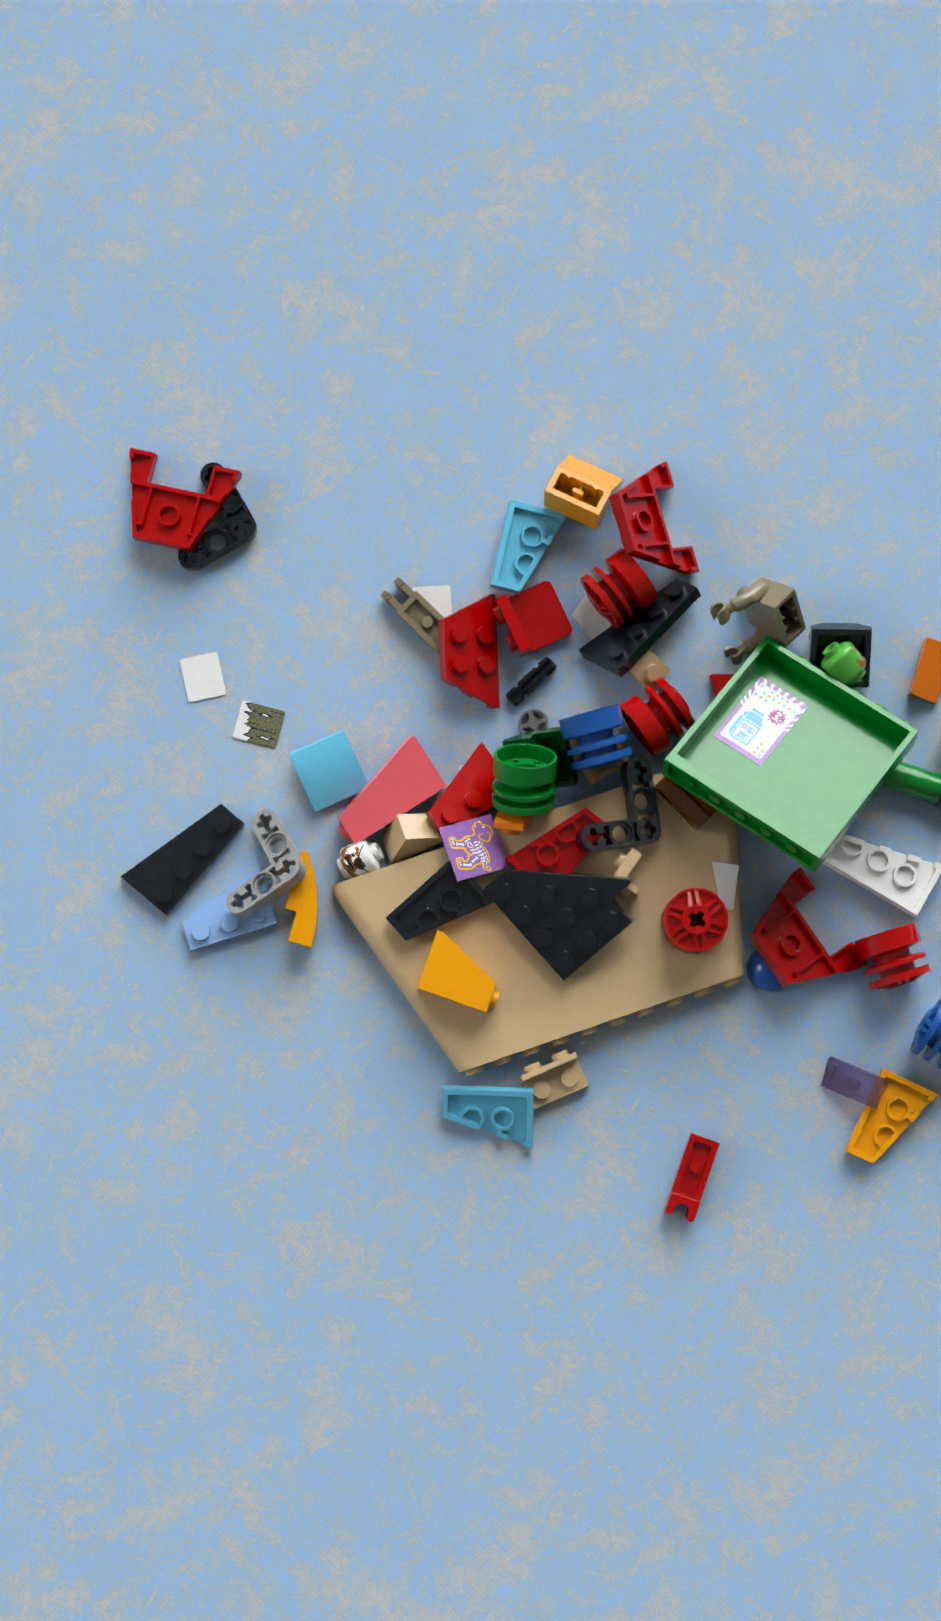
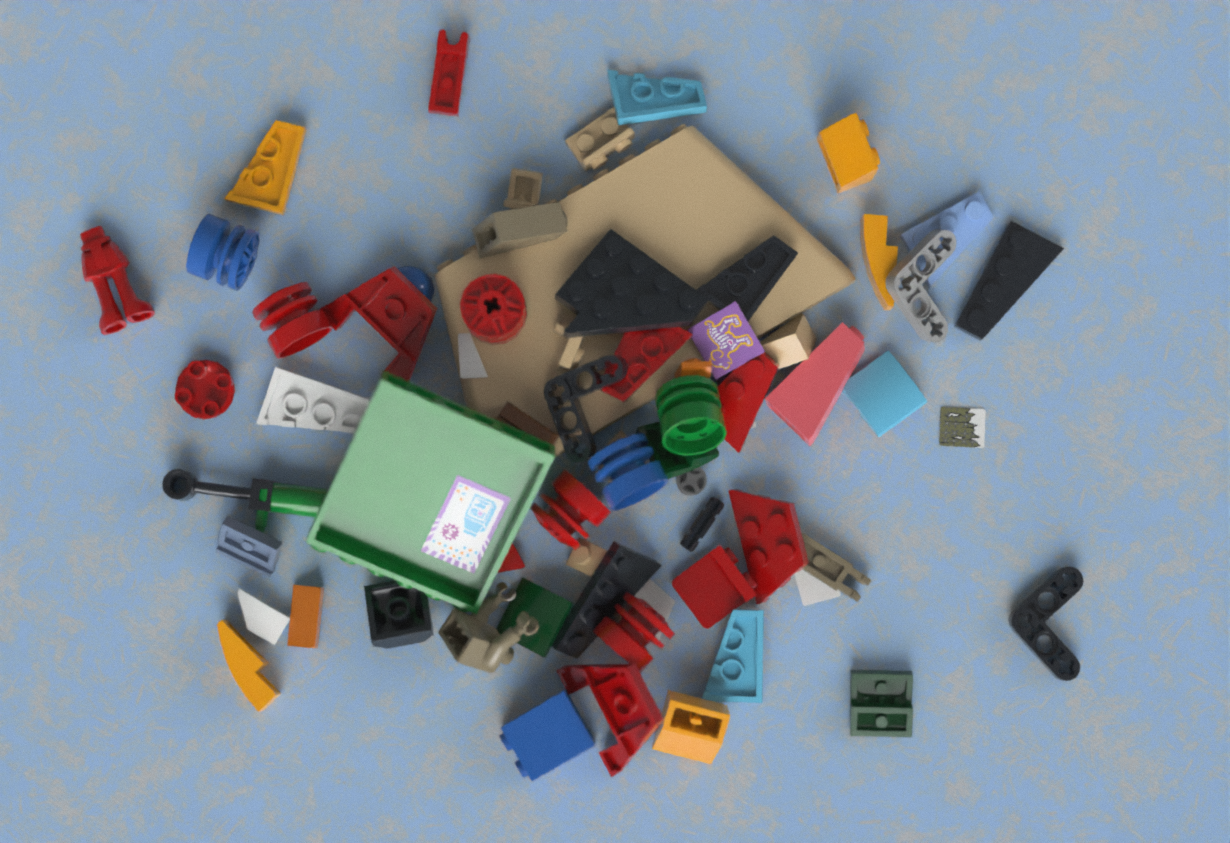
camera: 170 degrees right, 0 degrees up
(170, 514) = (1103, 617): red wing -> none
(202, 676) = (1028, 463): white sticker -> none
(312, 1010) = (848, 153): none -> light orange slope
(359, 859) = (834, 310): white head -> none
(396, 478) = (881, 703): none -> dark green slope
(456, 976) = (715, 210): light orange slope -> none
(640, 1041) = (523, 188): none -> tan bracket
(652, 996) = (519, 228): none -> dark tan slope
(704, 633) = (545, 606): none -> dark green slope
(719, 510) = (547, 736): none -> blue slope
(843, 663) = (393, 600): bright green head -> none
(853, 1082) = (308, 193): clear purple slope -> none

